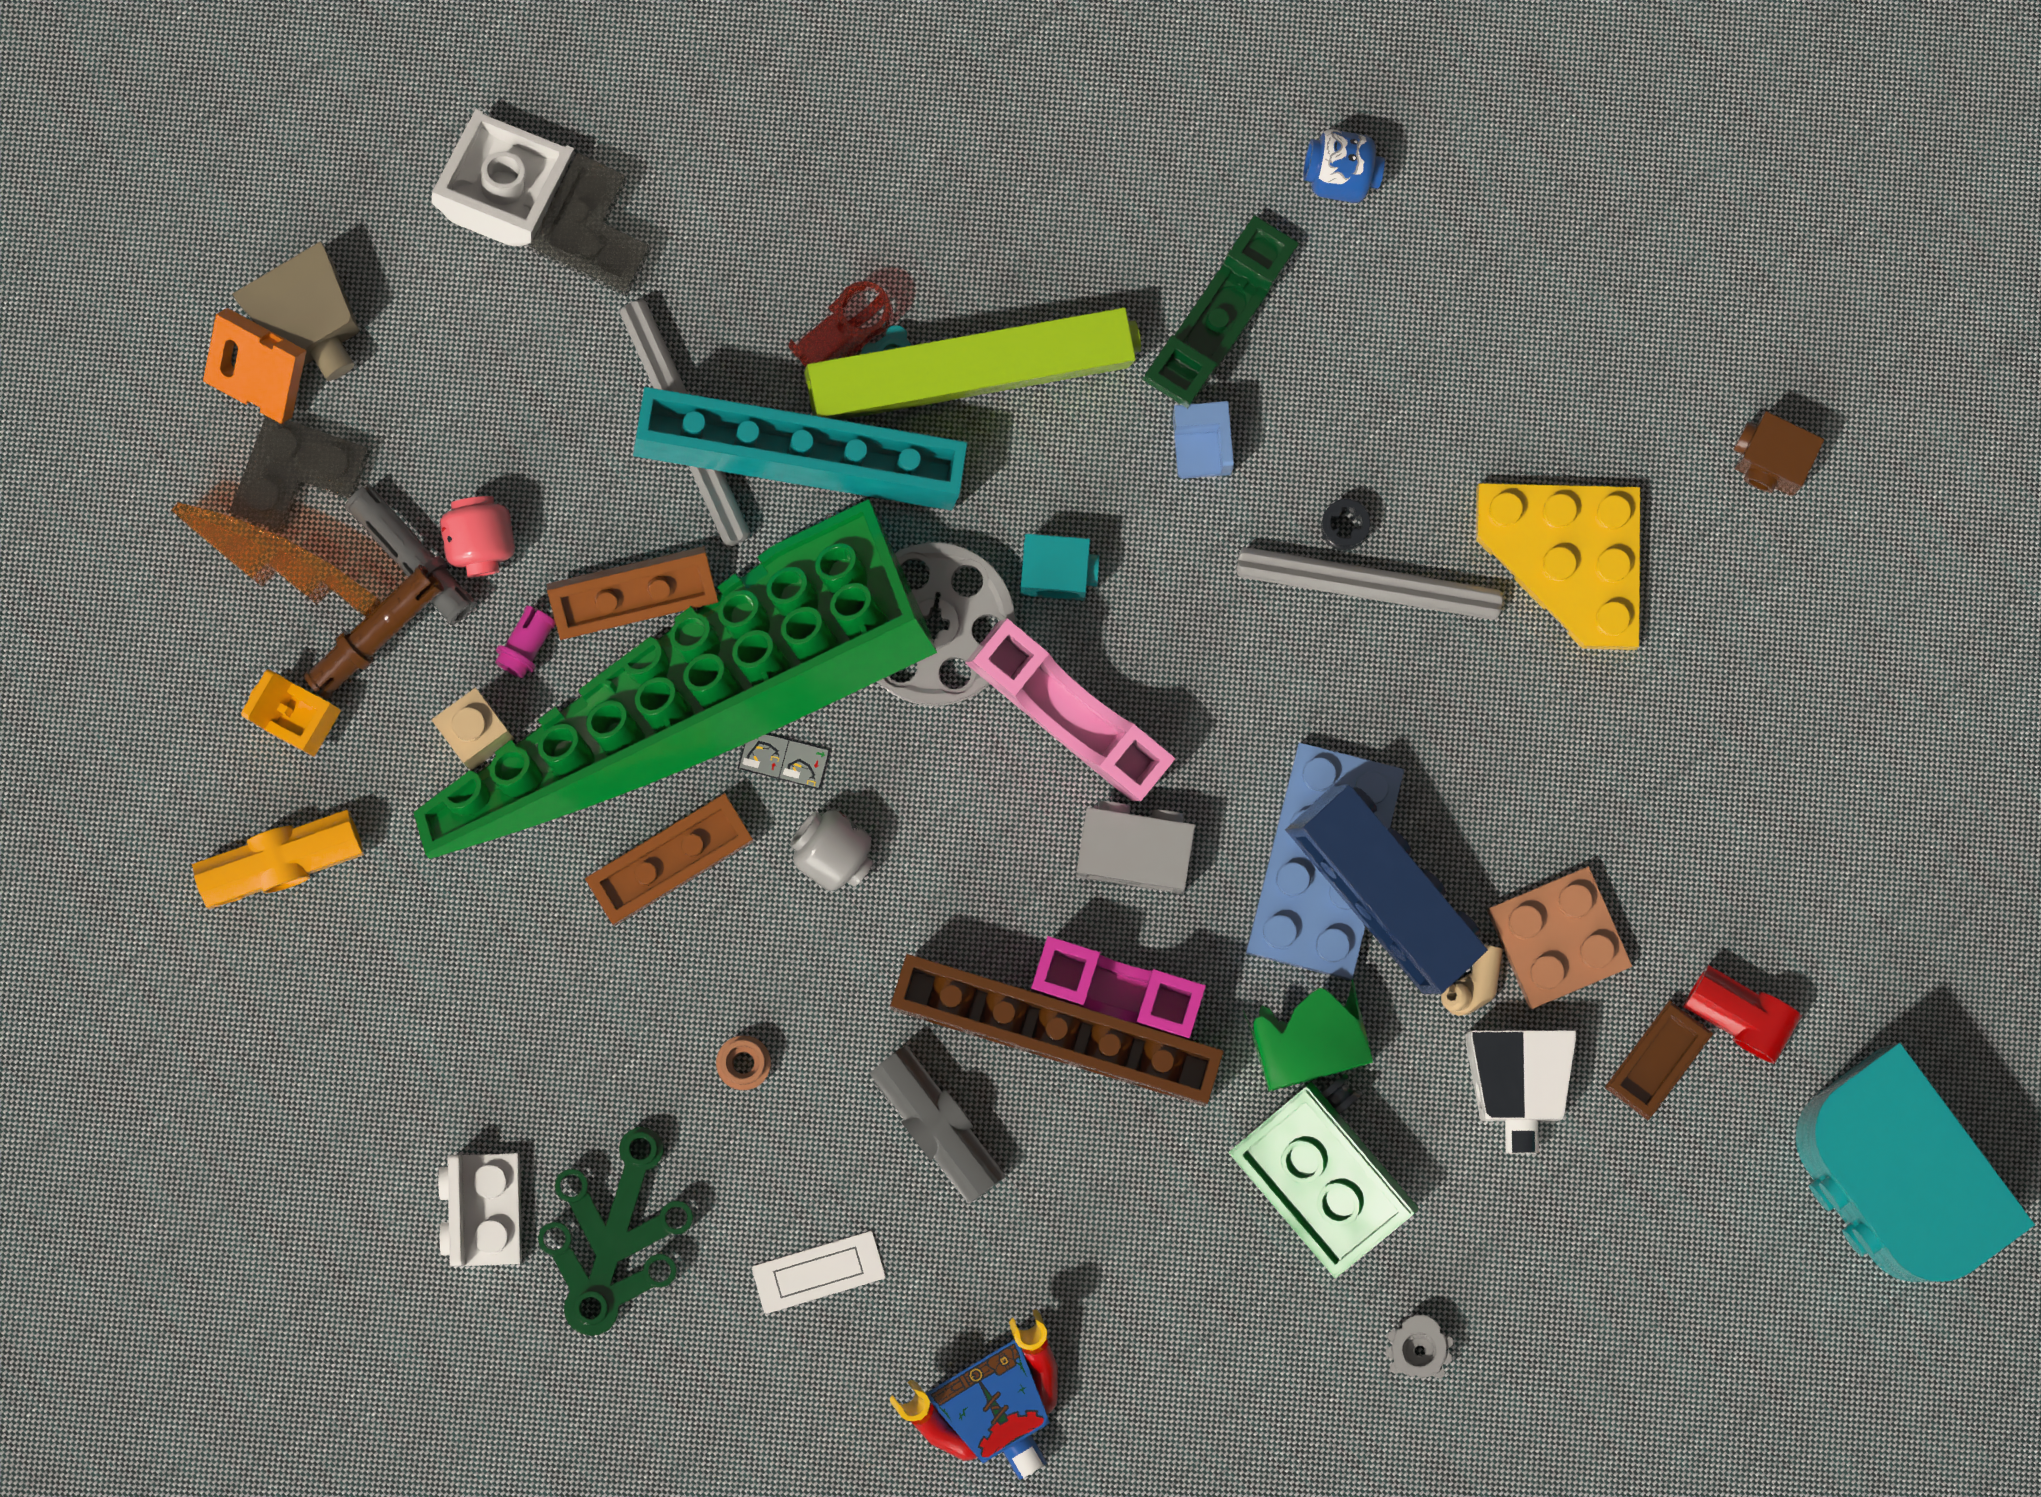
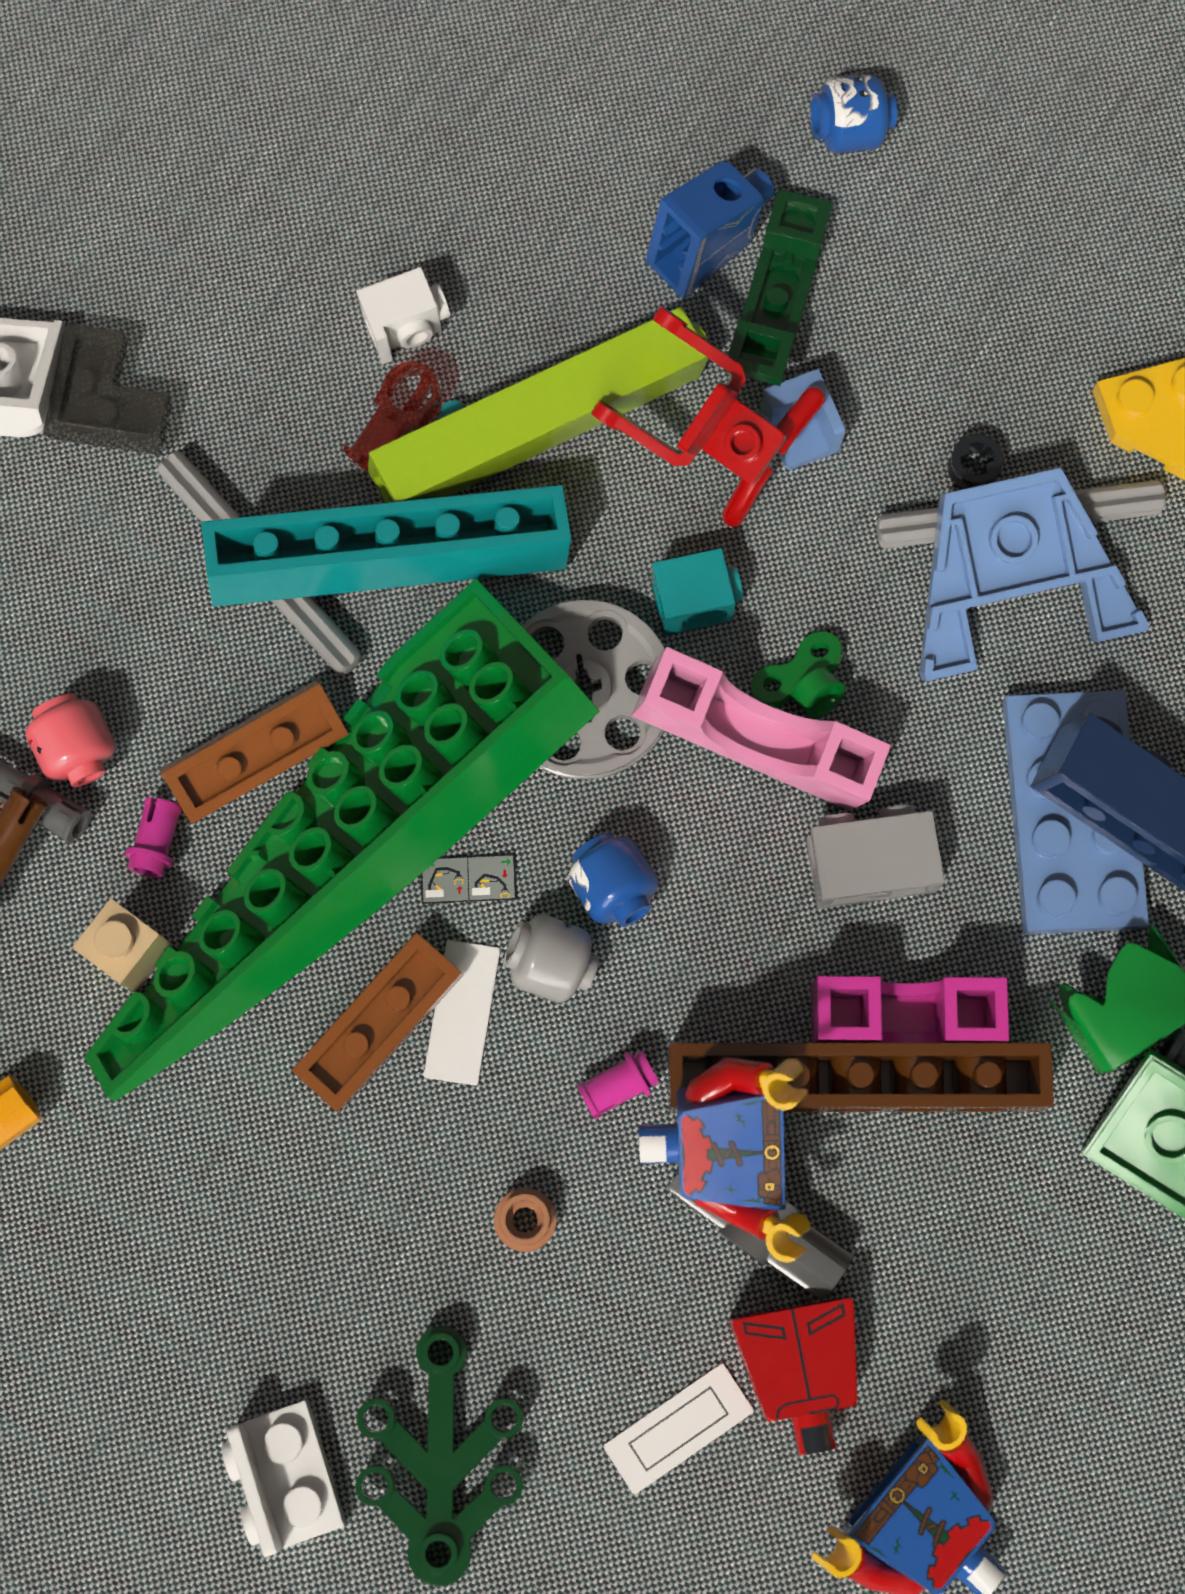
camera: 15 degrees left, 5 degrees down
(744, 875) = (463, 1015): none -> white sticker
(856, 974) = (618, 1084): none -> dark pink pin
(879, 231) = (402, 312): none -> white brick
(905, 799) = (613, 880): none -> blue head
(928, 1055) = (734, 1147): none -> torso
(933, 1250) = (801, 1366): none -> red torso
(1125, 435) = (724, 426): none -> red piece
(1129, 672) = (805, 678): none -> green piece
(1176, 234) = (706, 225): none -> blue torso
(1345, 610) = (1009, 544): none -> medium blue wing

